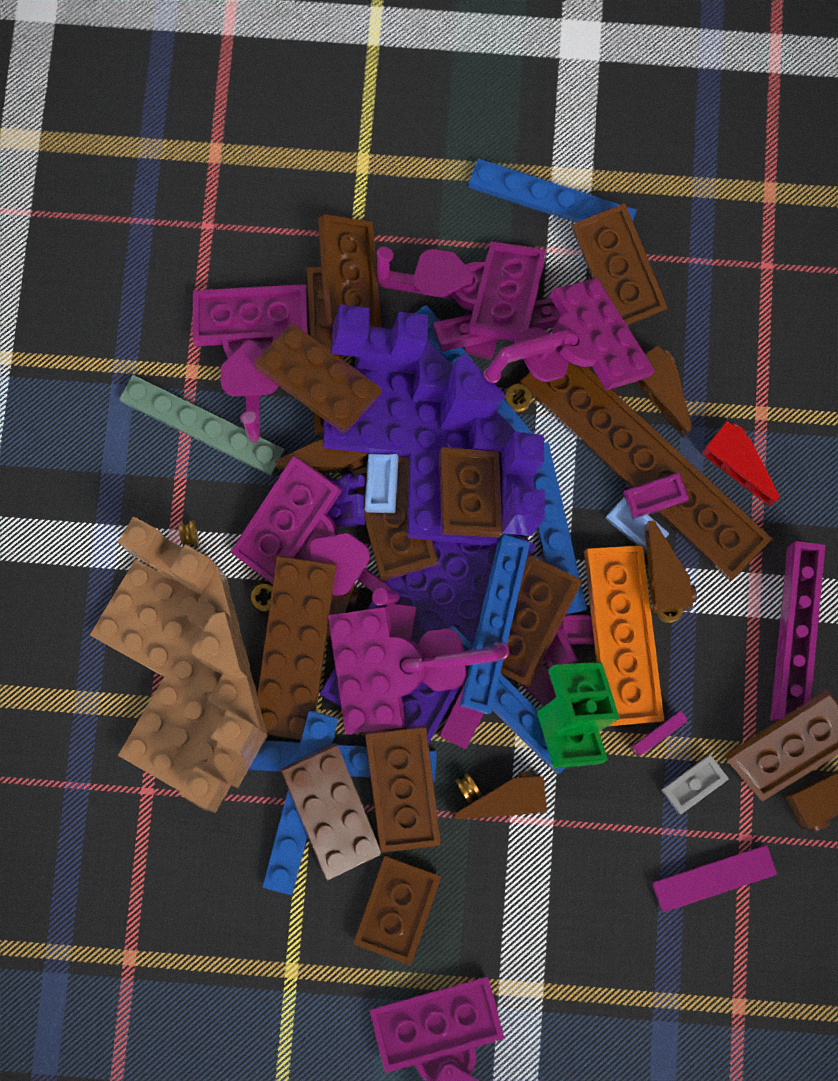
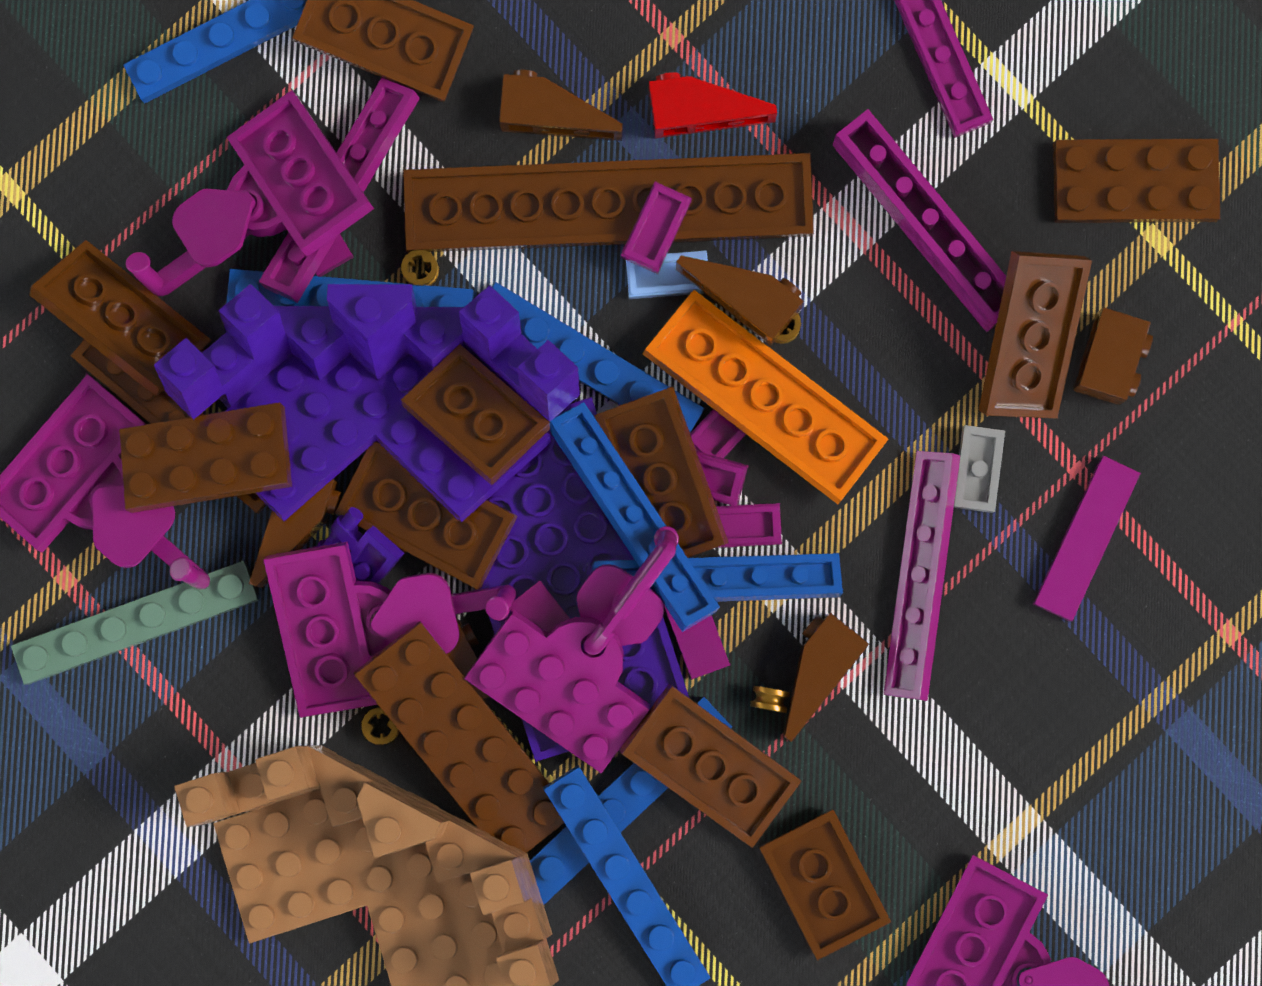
camera: 45 degrees left, 5 degrees up
(188, 534) = (240, 743): pearl gold bush -> none
(330, 811) = (664, 860): plate -> none
(381, 483) = (377, 494): light blue tile -> none
(577, 715) = (802, 520): green bracket -> none
(584, 335) = (425, 141): magenta plate -> none
(609, 807) = (922, 575): none -> magenta plate
(658, 734) = (896, 456): magenta tile -> none

